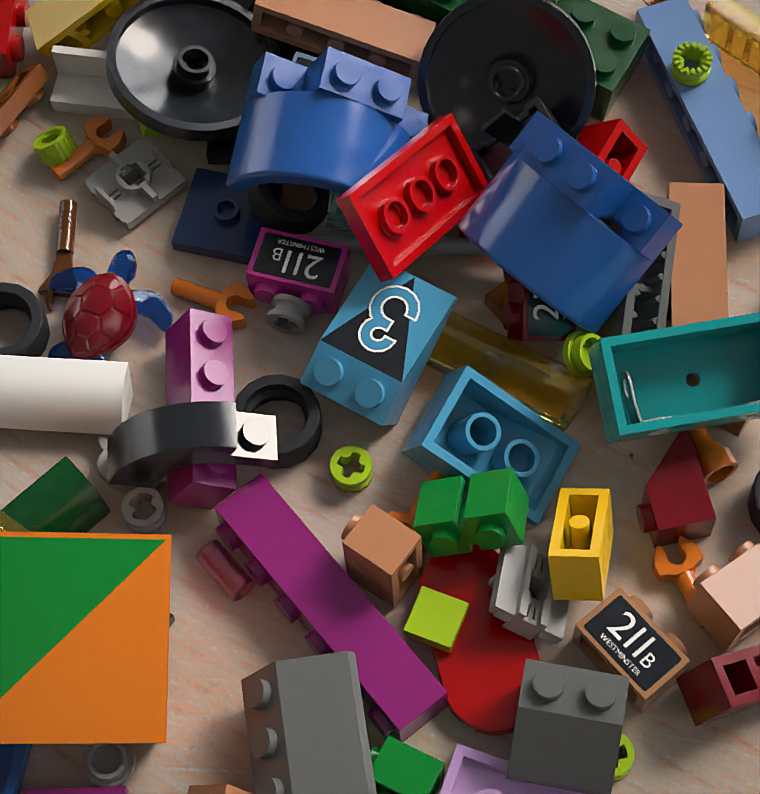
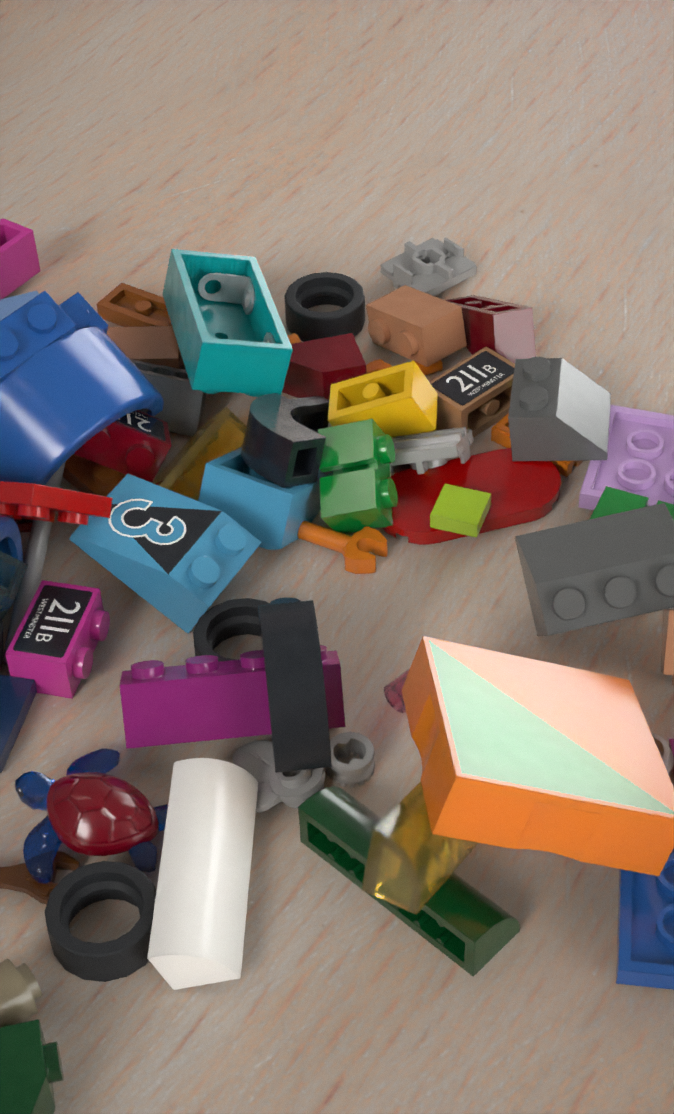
camera: 95 degrees left, 20 degrees down
(218, 301) = (81, 717): orange bar -> none
(288, 314) = (110, 645): light grey bush -> none
(329, 607) = (438, 596): magenta brick -> none
(356, 481) = (296, 577): lime bush -> none
(382, 554) = (405, 534): nougat brick -> none
(528, 424) = (284, 438): none -> black arch
(576, 352) = (181, 417): lime plate -> none

